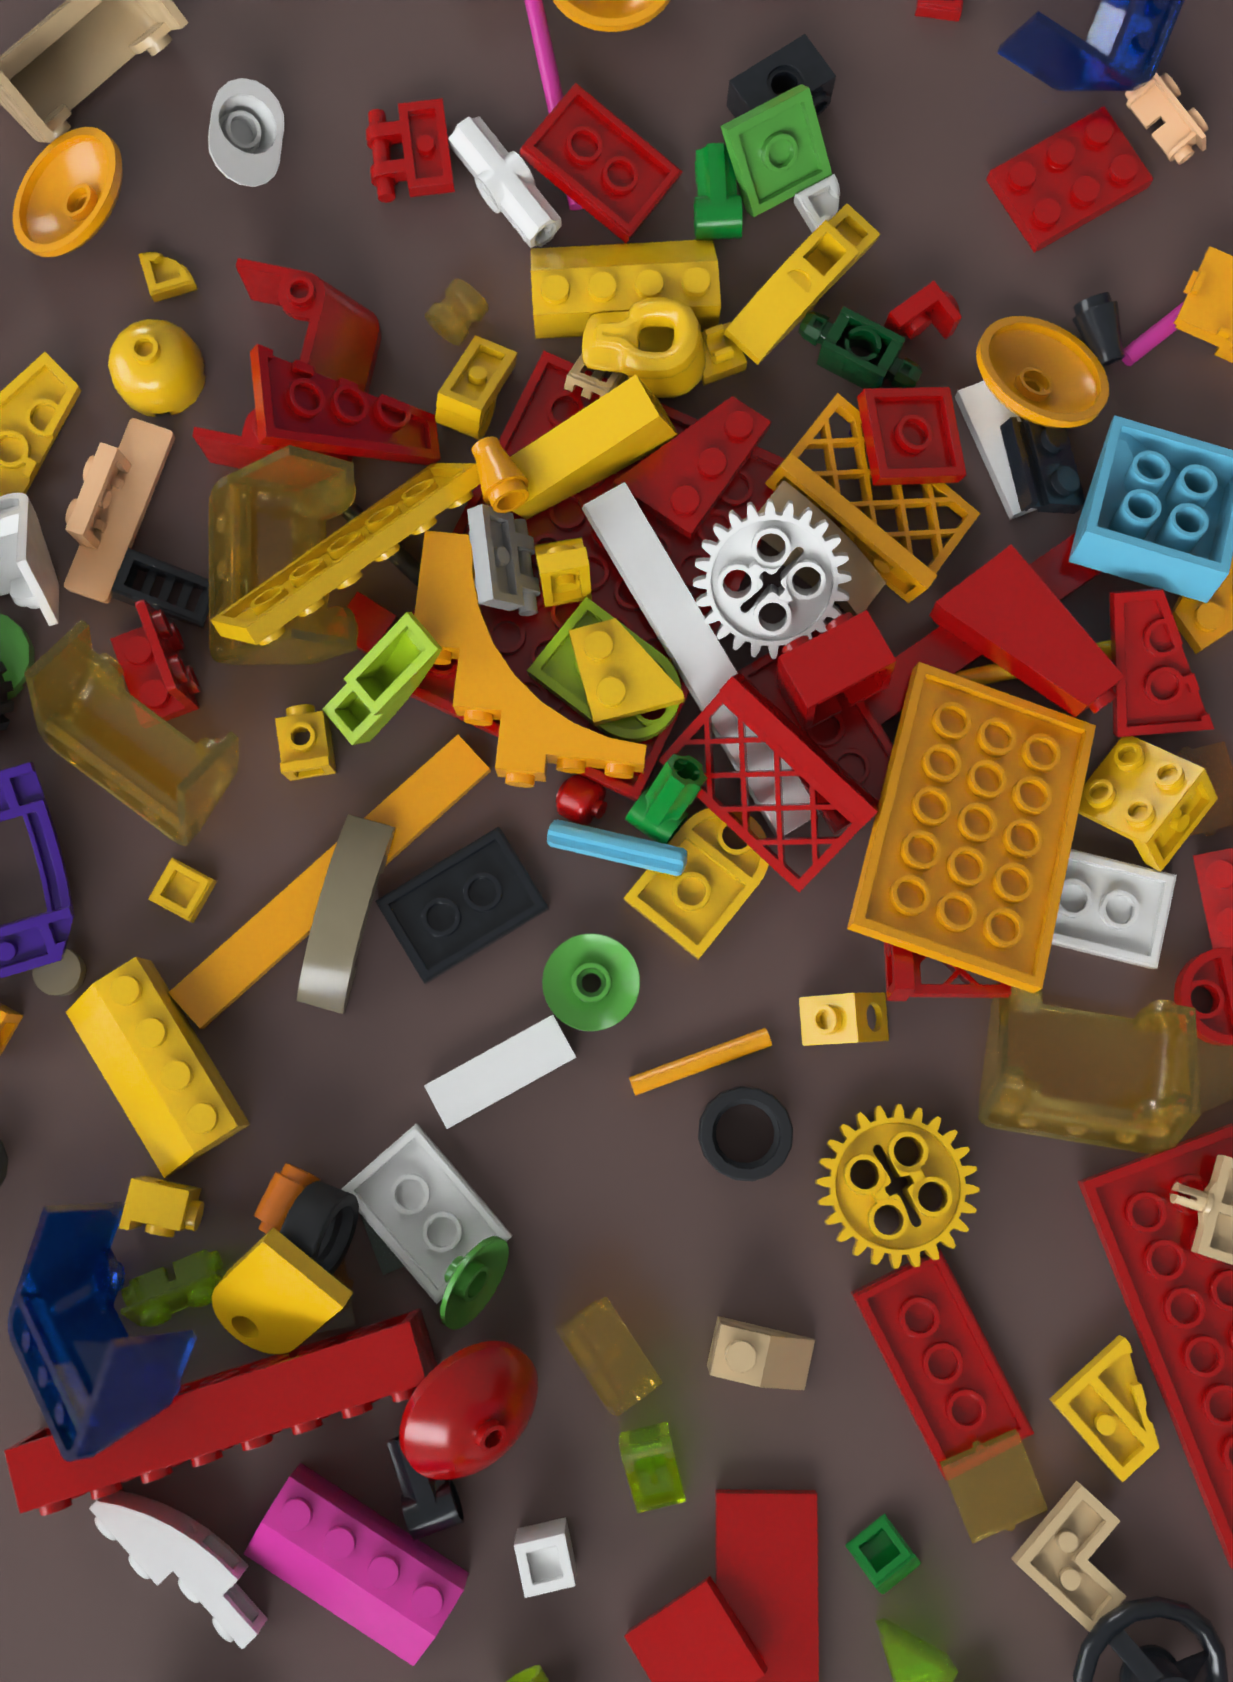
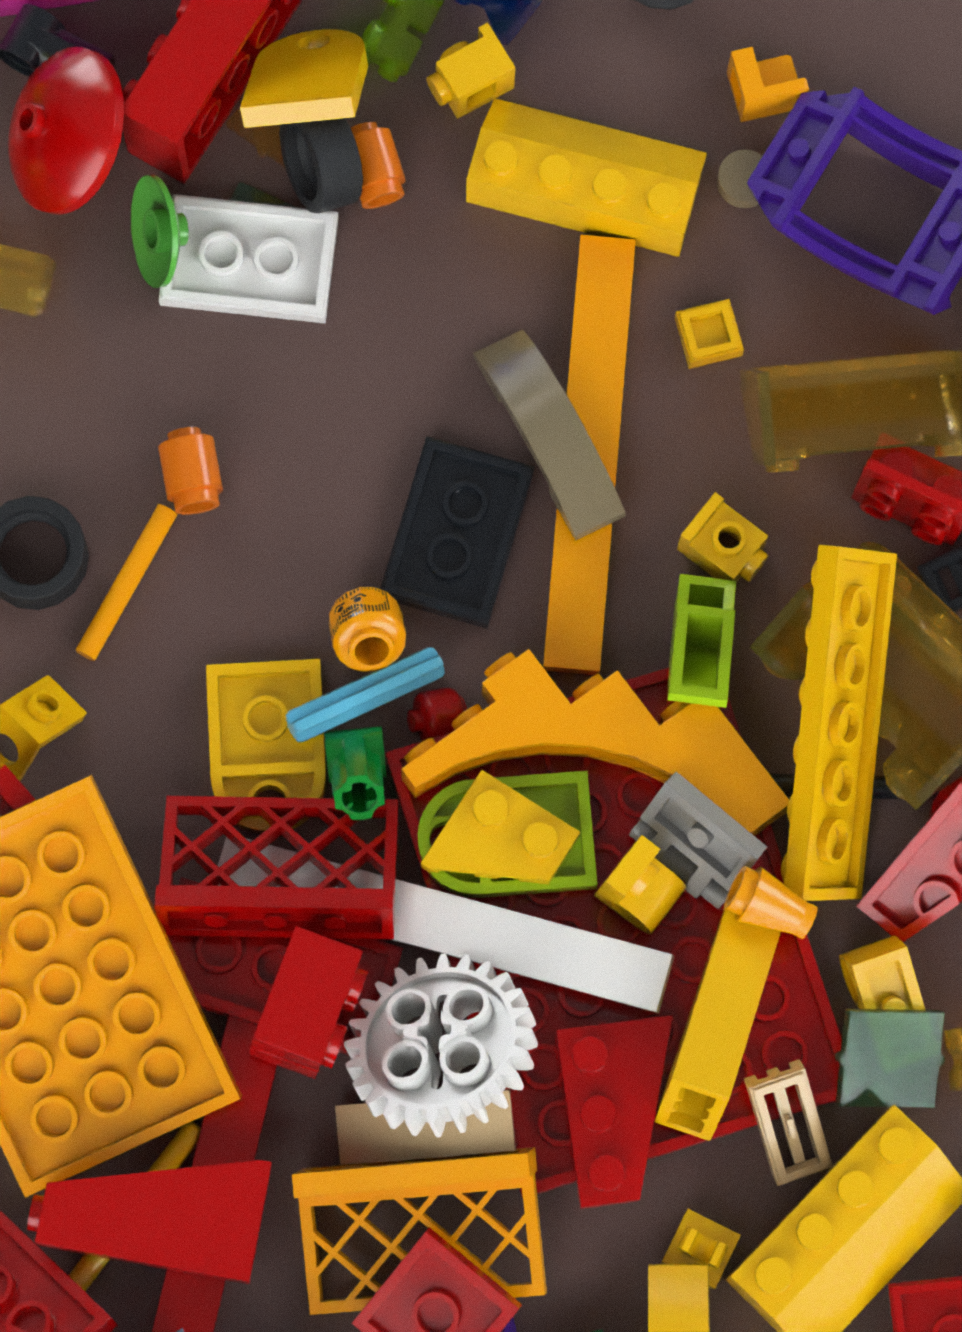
camera: 135 degrees right, 5 degrees down
(372, 621) = (772, 699): red tile -> none
(500, 1071) = (292, 423): white tile -> none
(507, 350) = (889, 1058): none -> clear green piece
(579, 885) = (367, 629): none -> light orange head
(585, 956) = (277, 533): bright green dish -> none
(595, 1096) = (190, 471): none -> orange brick
(669, 340) = (733, 1190): yellow piece -> none

